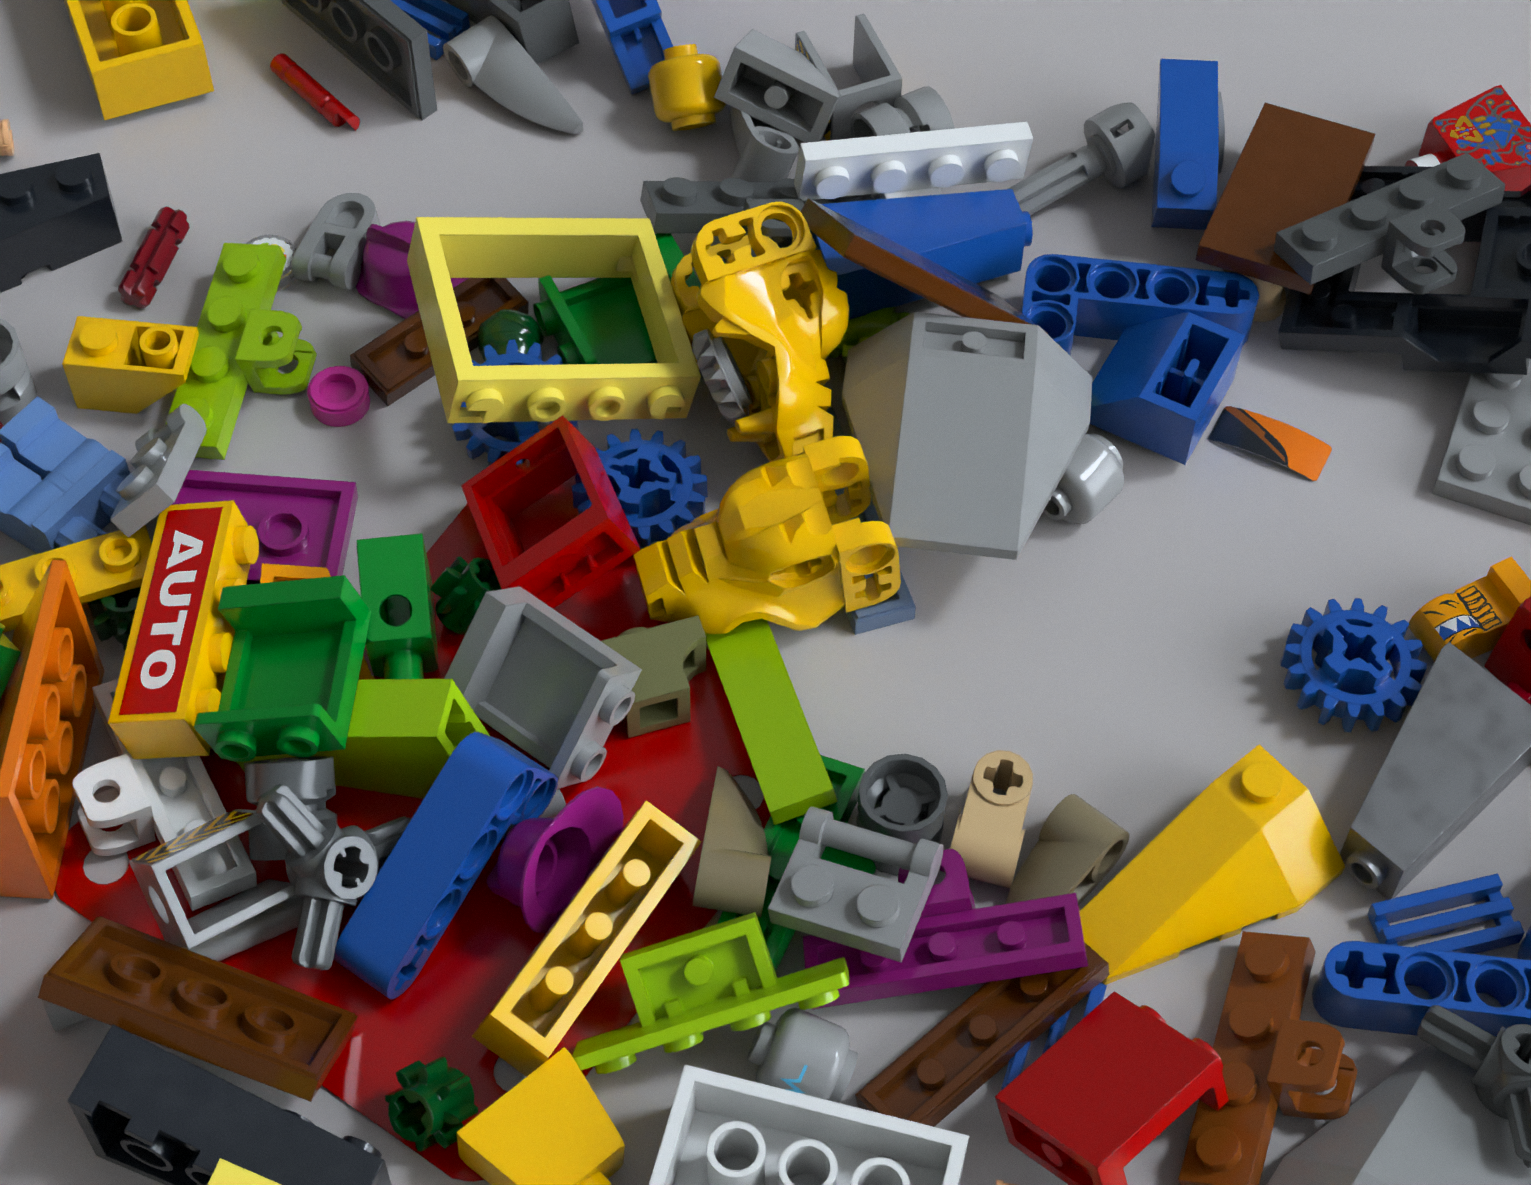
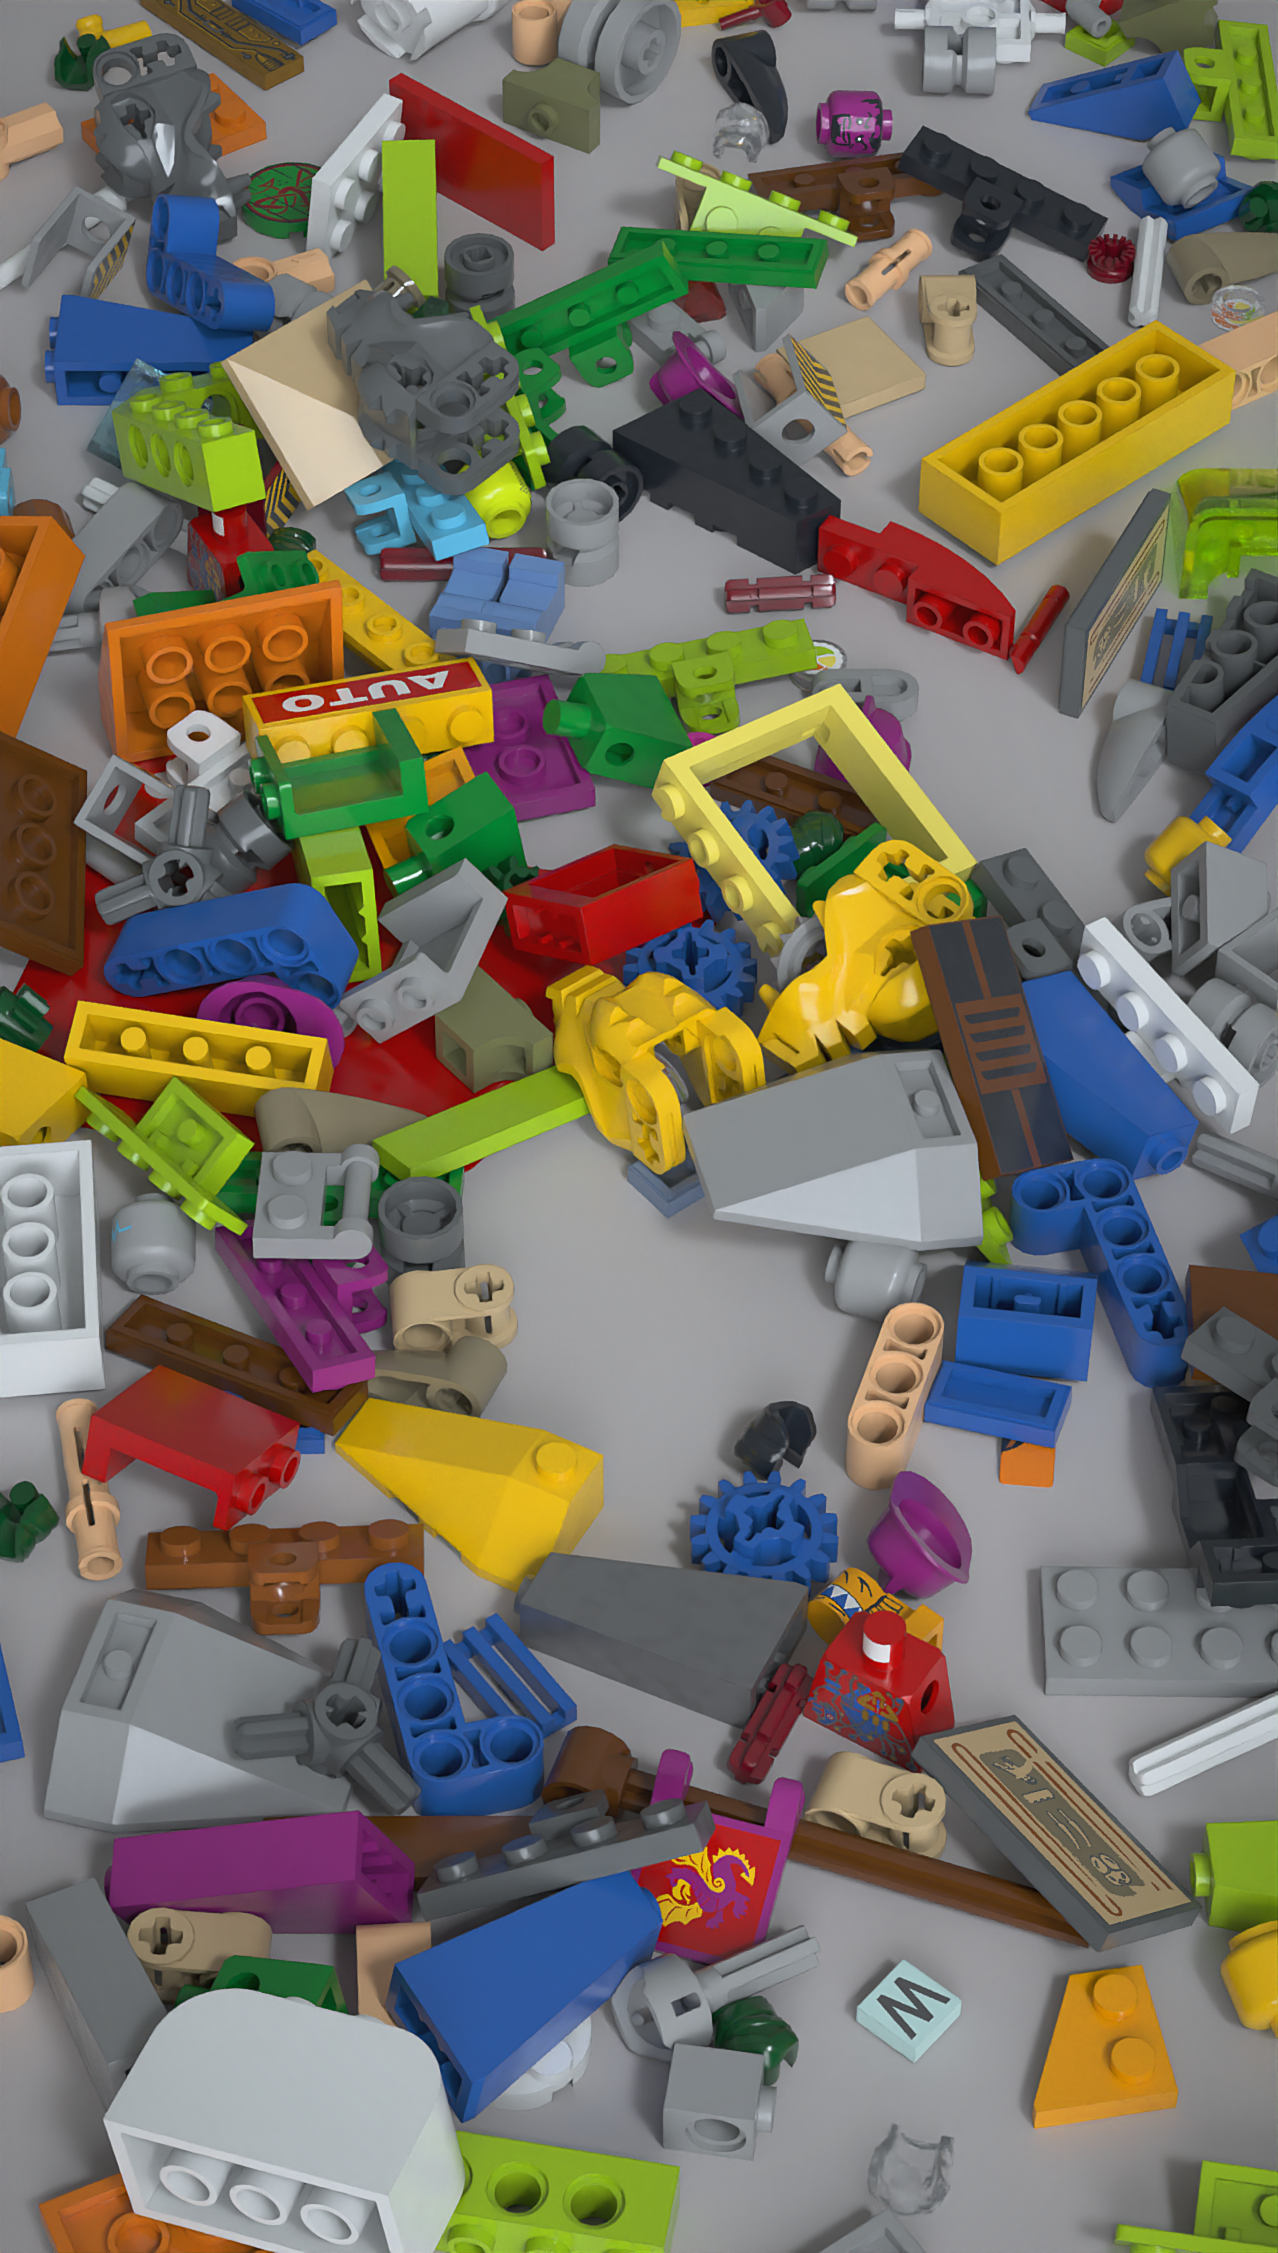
camera: 70 degrees right, 10 degrees down
(126, 362) = (637, 600): yellow slope -> none
(229, 135) = (934, 582): none -> red slope
(297, 428) = (618, 726): none -> green torso
(1186, 491) = (893, 1395): none -> light nougat beam
(1241, 448) = (998, 1404): none -> blue tile
(1244, 619) = (778, 1432): none -> black arm
(1400, 560) = (919, 1539): none -> magenta piece

